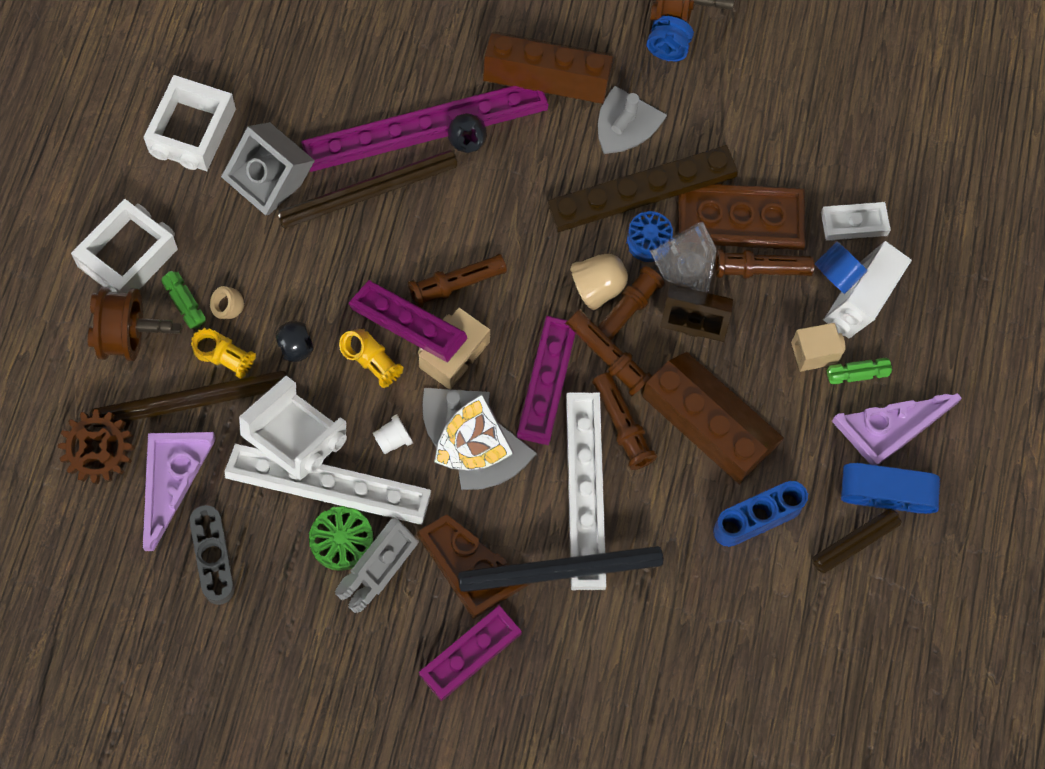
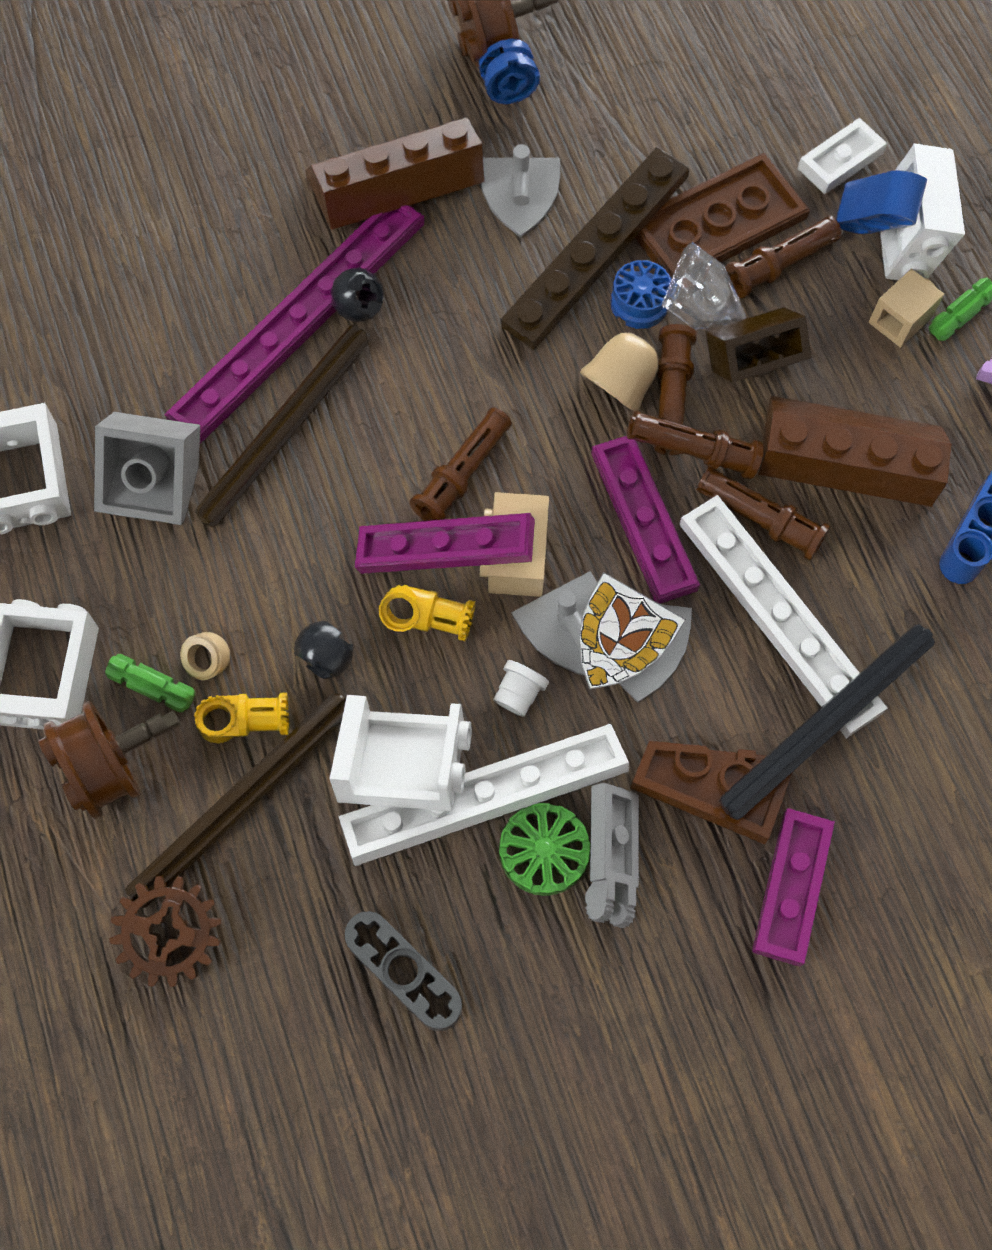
camera: 30 degrees left, 0 degrees up
(170, 470) = (279, 898): lavender wing -> none

